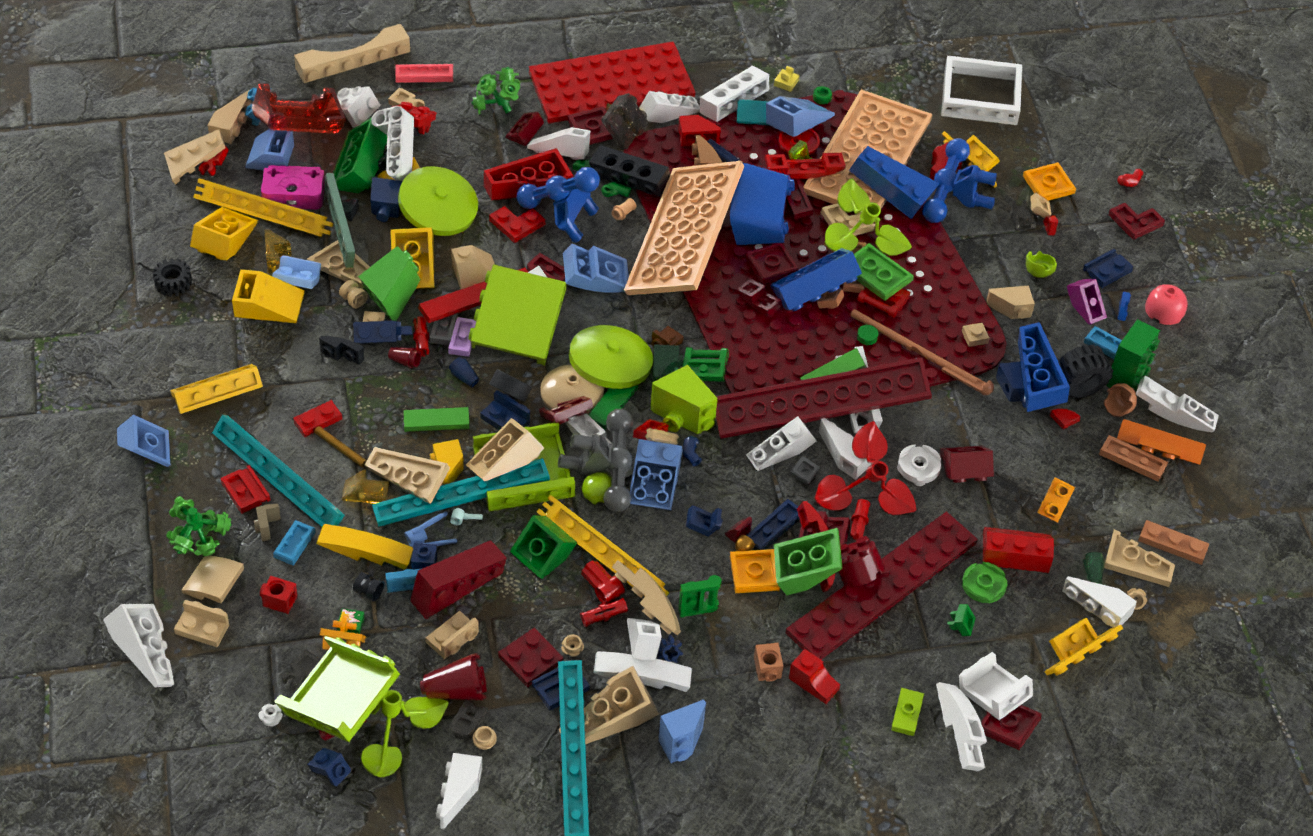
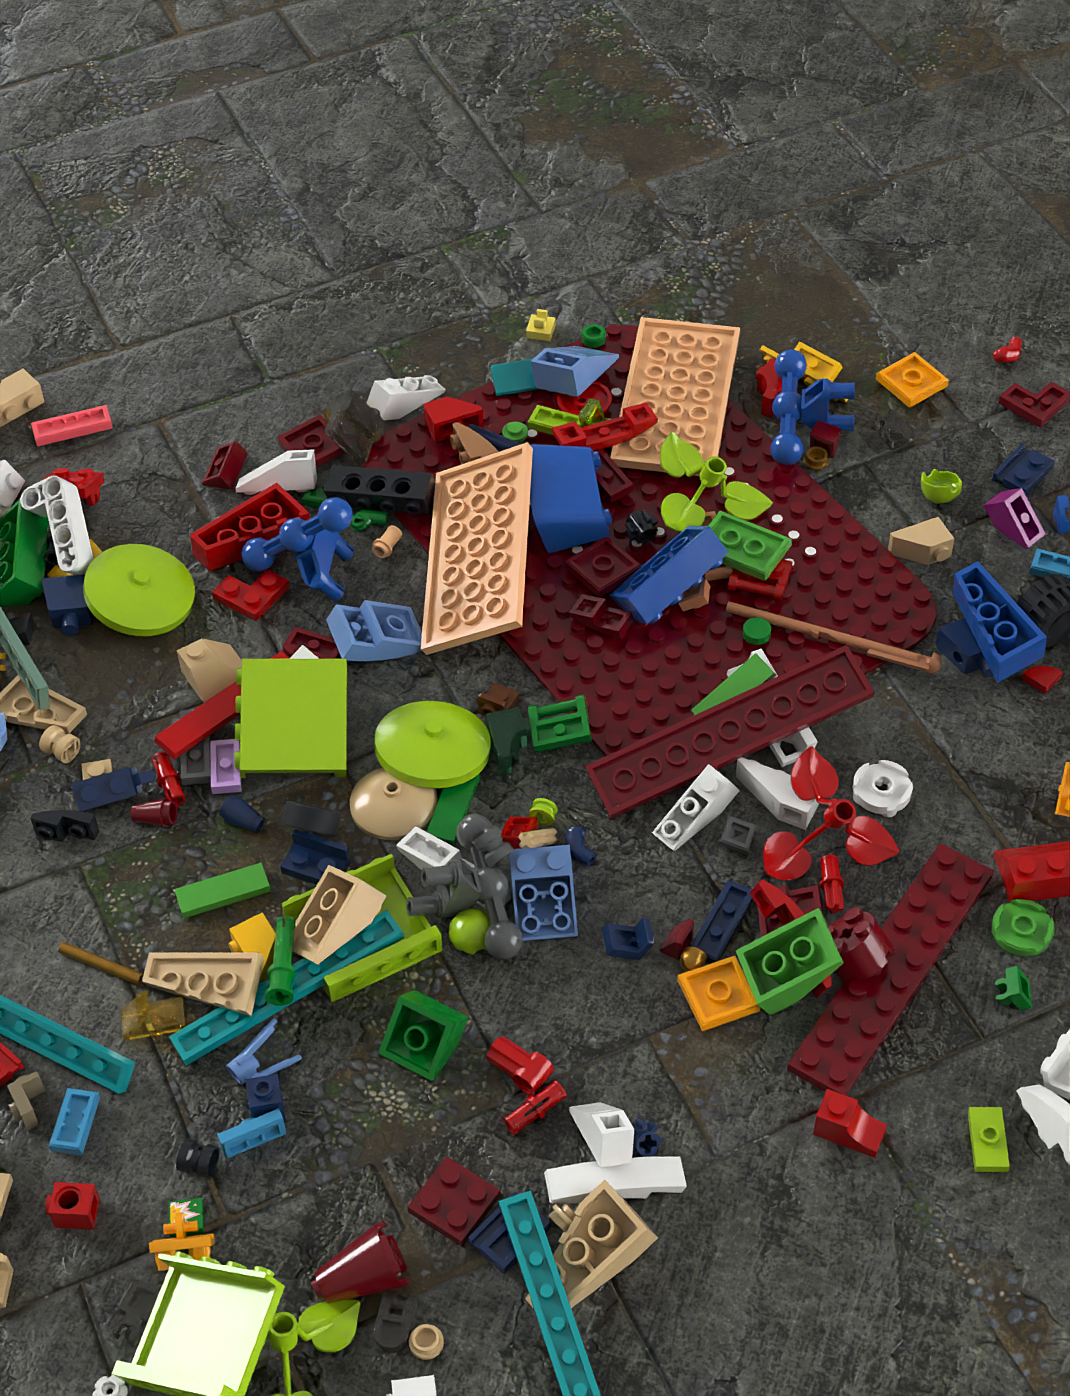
camera: 10 degrees left, 0 degrees up
(322, 416) = (59, 928): red plate -> none
(363, 544) = (175, 1099): yellow slope -> none
(391, 281) = (108, 715): bright green slope -> none
(402, 95) = (51, 461): tan plate -> none
(420, 245) = (127, 676): yellow slope -> none
(453, 634) = (335, 1198): tan bracket -> none
(456, 577) = (317, 1113): dark red wedge -> none
(458, 480) = (282, 972): none -> green pin
(459, 514) = (293, 1020): light aqua hand -> none
(487, 85) = (190, 418): bright green plant -> none
(567, 409) = (398, 832): dark red wing -> none
(572, 640) = (503, 1161): tan plate -> none
(591, 539) = (509, 1018): yellow hinge -> none
(599, 79) = (307, 379): red plate -> none
(599, 683) = (563, 1215): none -> tan plate
(627, 432) = (493, 846): none -> dark grey wheel
(655, 601) = (603, 1075): tan slope -> none
(681, 731) = (698, 1257): medium blue slope -> none
(686, 395) = (552, 773): lime slope -> none
(692, 597) = (652, 1053): green plate -> none
(724, 98) = (472, 368): white brick -> none
(741, 152) = (515, 431): none -> bright green plate
(767, 147) = (545, 418): none -> lime plate
(768, 654) = (781, 1107): nougat brick -> none
(808, 241) = (641, 527): none -> black gear
(835, 214) = (662, 484): tan plate -> none
(893, 181) = (724, 423): blue wedge -> none
(956, 223) = (816, 458): none -> pearl gold plate
(967, 210) = (825, 436): none -> dark red slope
(967, 463) = (944, 769): dark red slope -> none
(975, 334) = (893, 596): tan plate -> none
(977, 109) = (792, 309): white window -> none
(1040, 205) = (912, 412): tan plate -> none
(1050, 224) = (933, 432): red tile -> none

